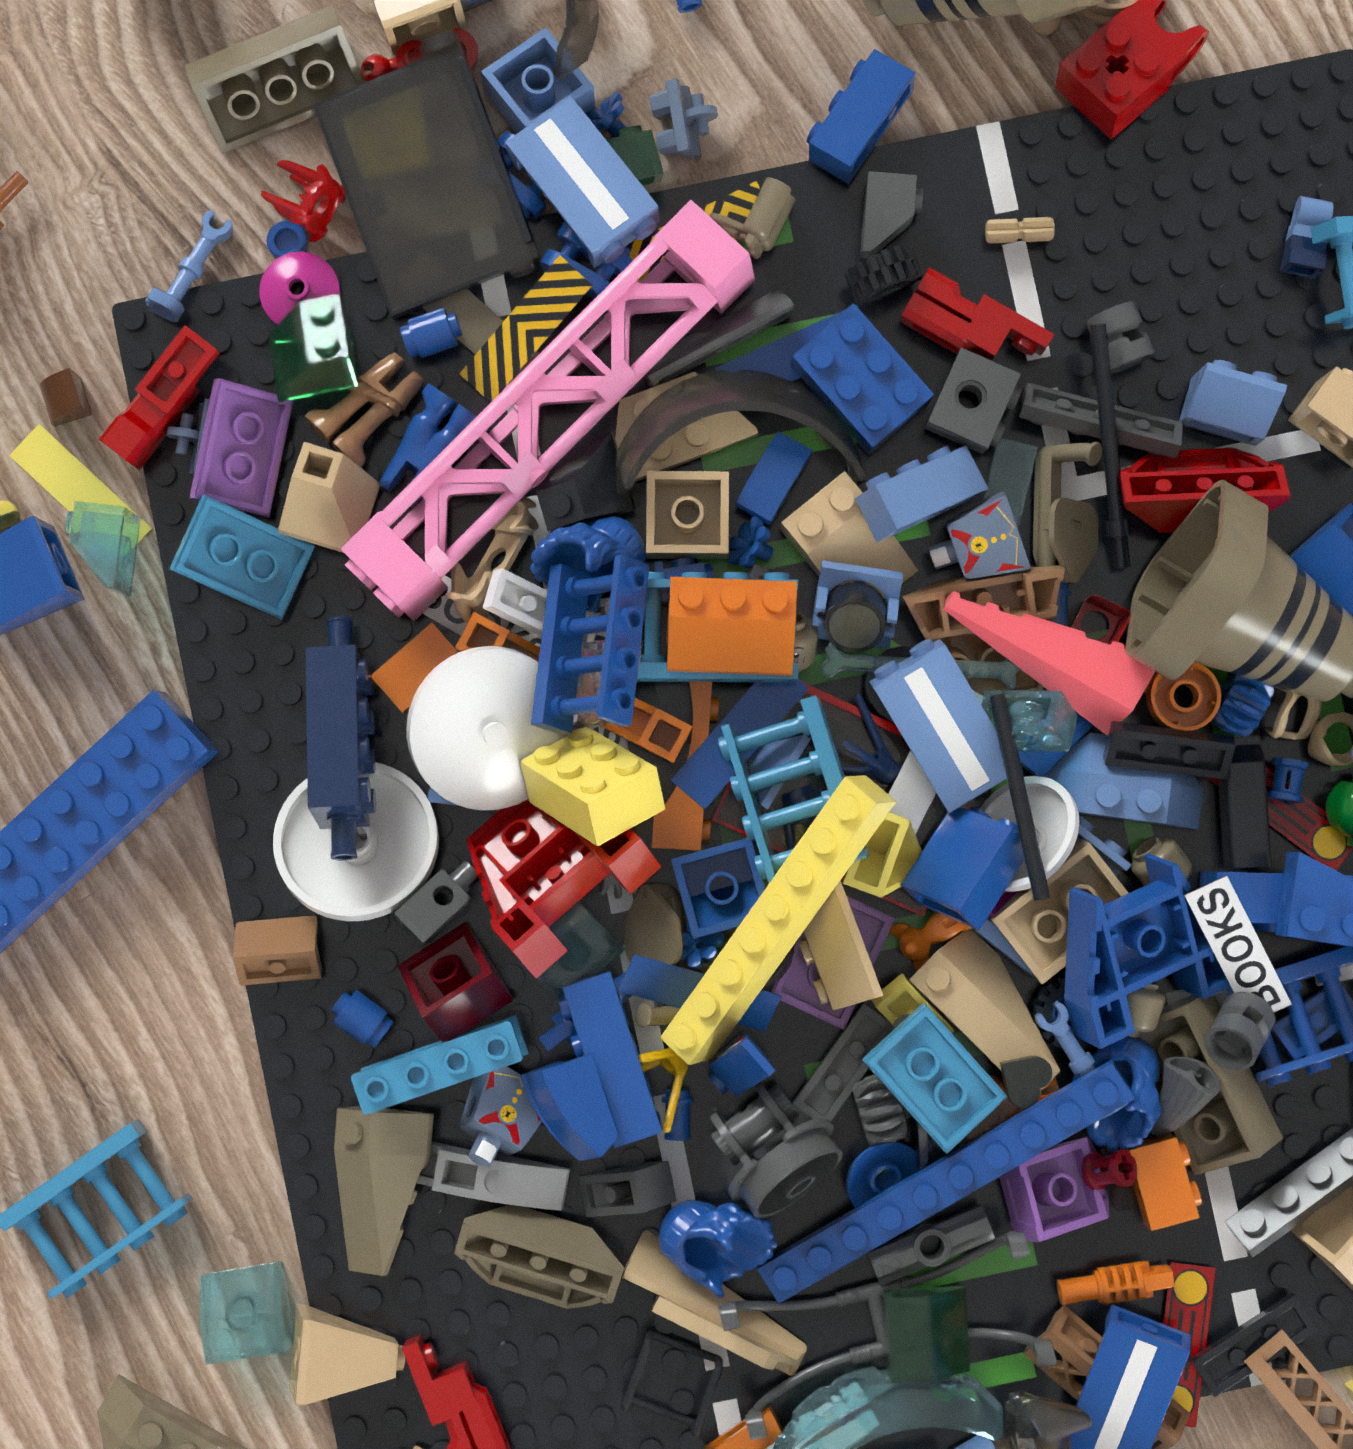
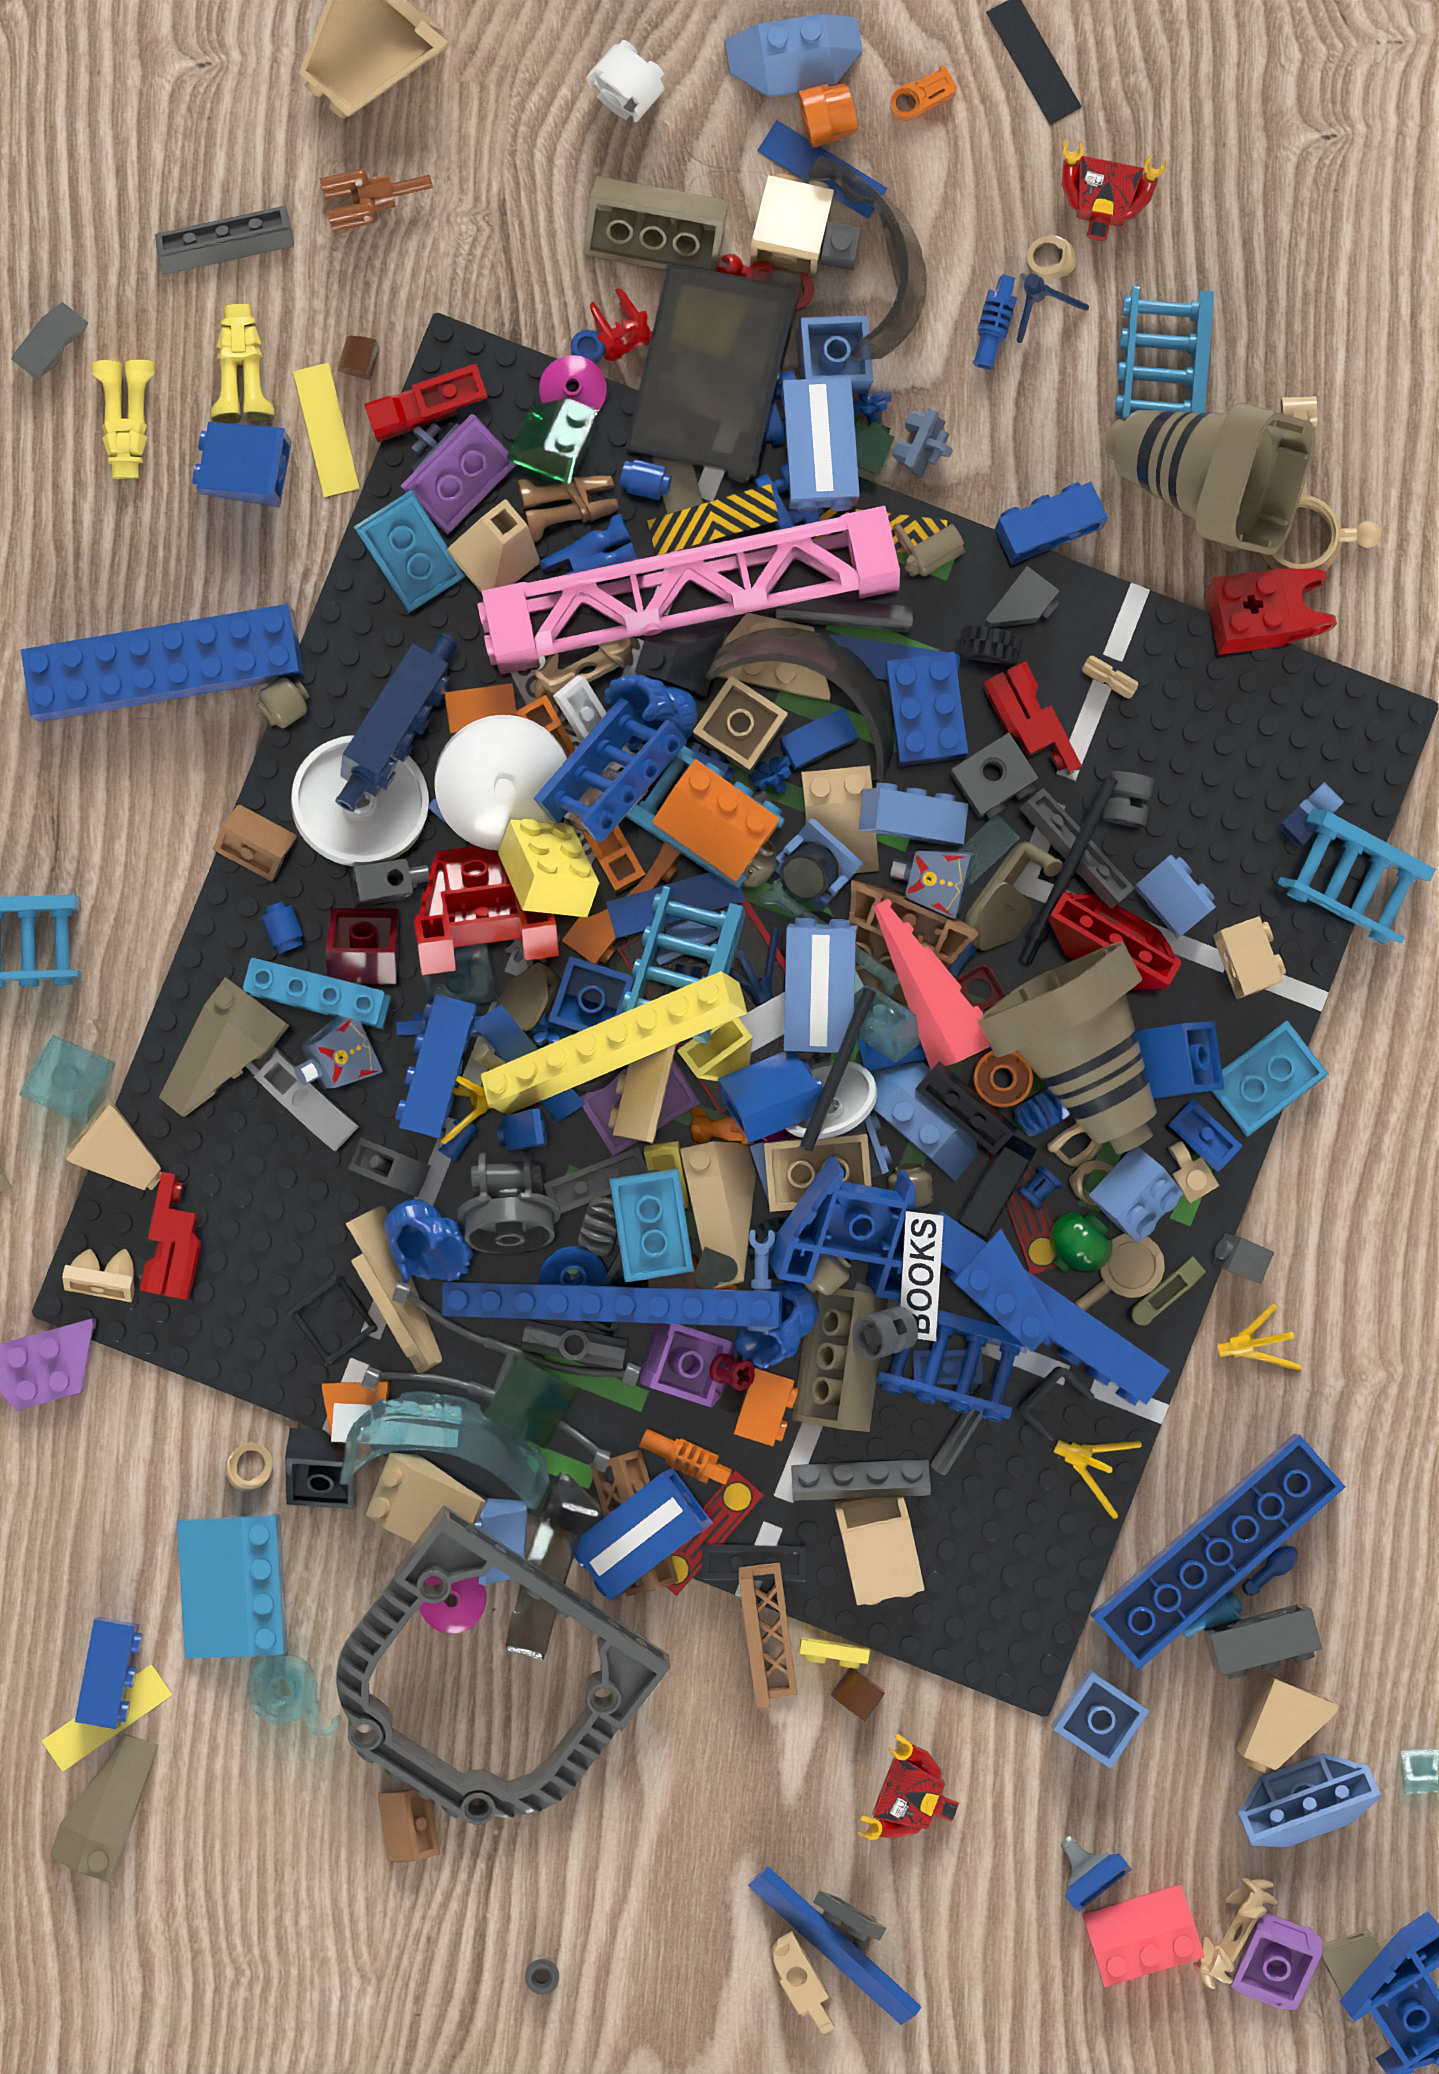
camera: 35 degrees right, 0 degrees up
(106, 541) = (322, 478): clear light blue slope -> none
(168, 303) = (507, 323): medium blue piece -> none
(213, 791) = (283, 702): none -> dark tan head
(540, 1256) = (297, 1172): dark tan wedge -> none
(573, 1106) = (389, 1079): blue slope -> none
(1185, 1091) = (819, 1352): dark grey piece -> none

